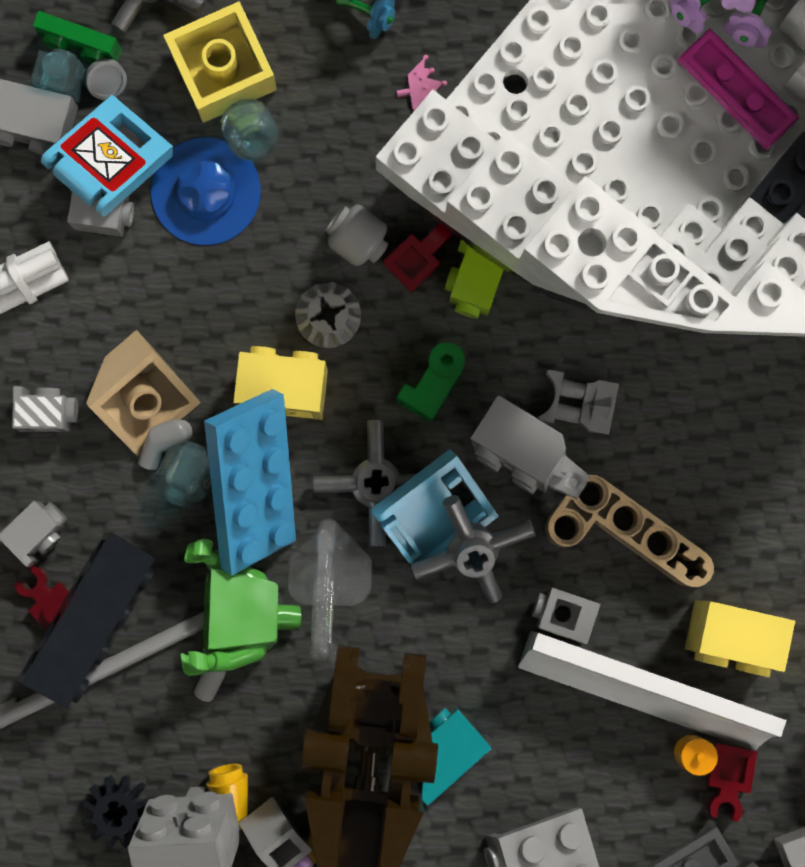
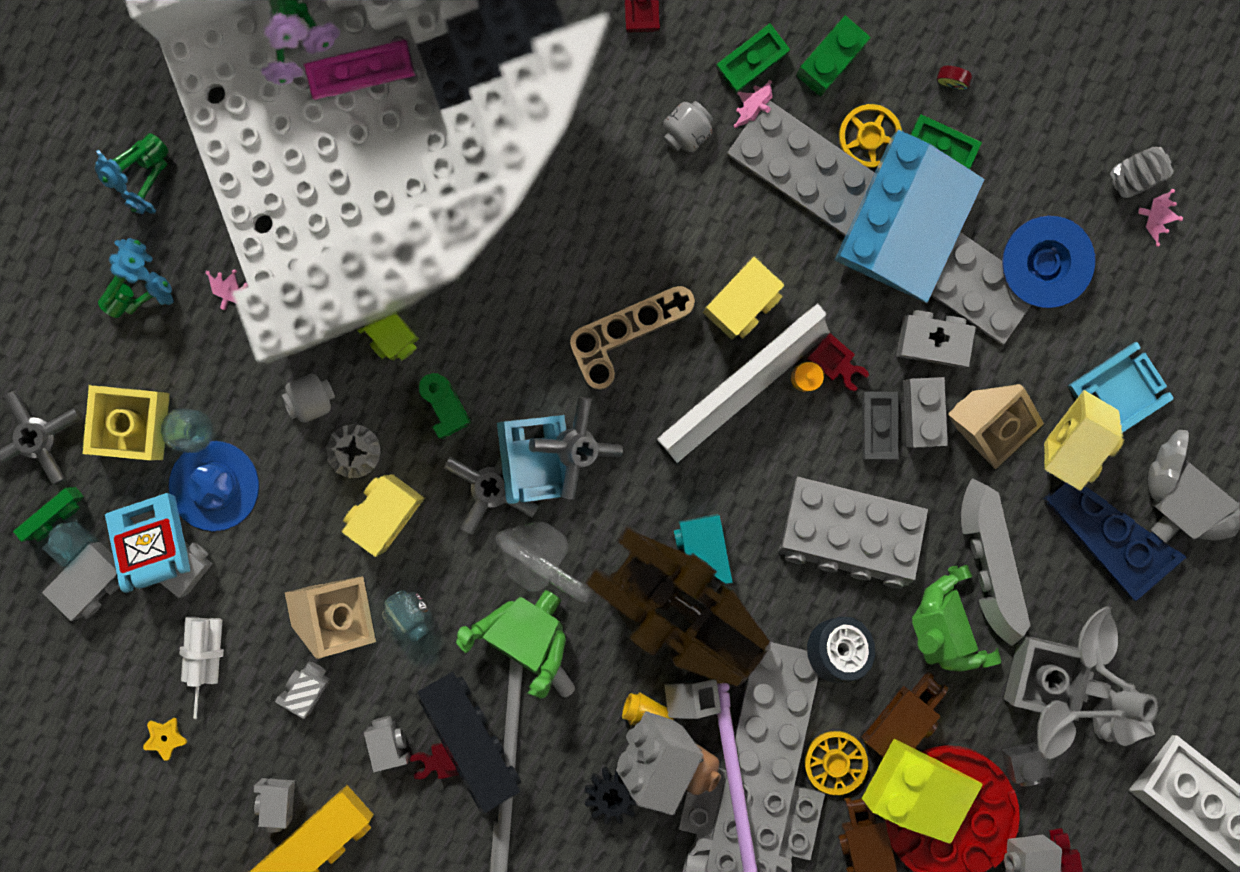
camera: 50 degrees left, 5 degrees up
(105, 78) = (90, 511): light grey piece -> none
(160, 439) = (372, 619): light grey arm -> none
(251, 480) = (437, 575): dark azure plate -> none
(415, 260) = (350, 368): dark red plate -> none
(527, 450) = (528, 369): light grey hinge -> none
(581, 619) = (672, 406): light grey brick -> none
(596, 407) = (525, 298): light grey piece -> none

